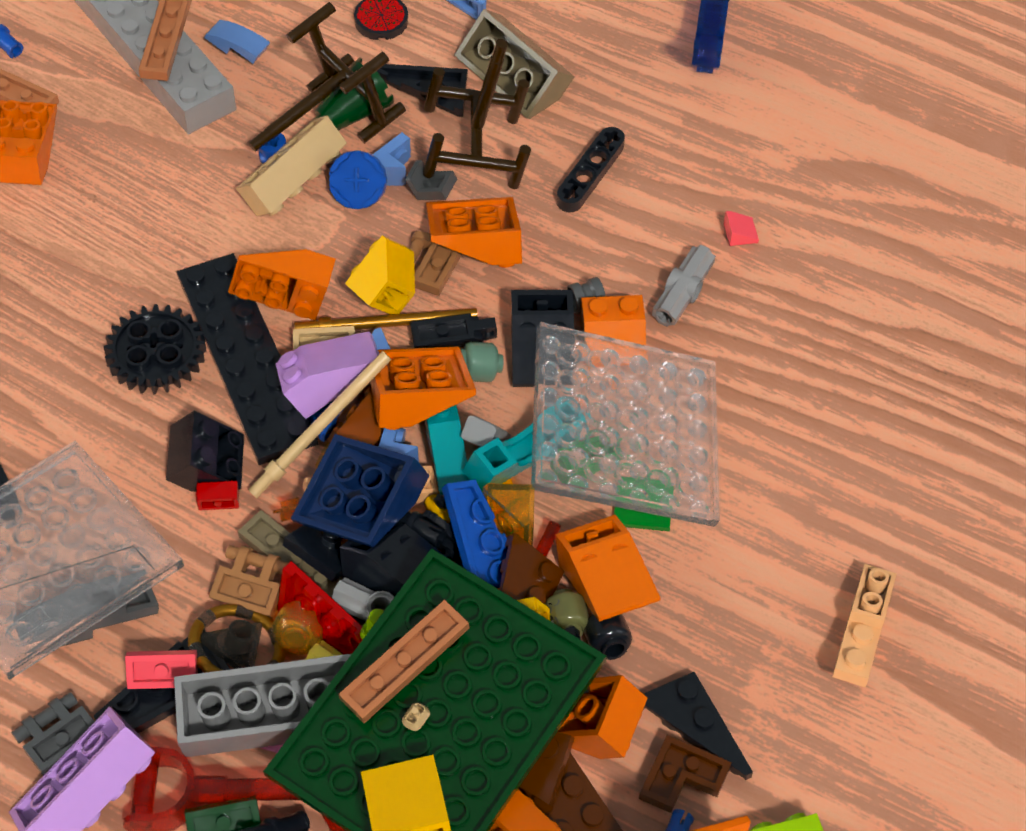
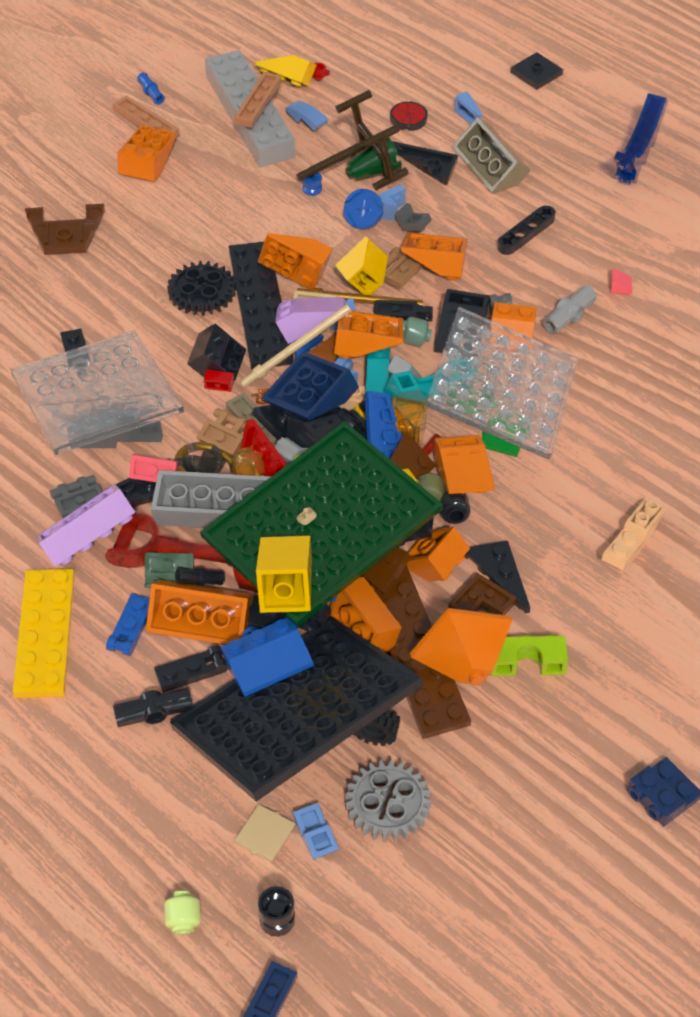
camera: 15 degrees right, 5 degrees down
(292, 166) = (320, 194): tan brick -> none
(404, 661) = (307, 481): nougat plate -> none
(480, 106) = (458, 170): dark brown piece -> none

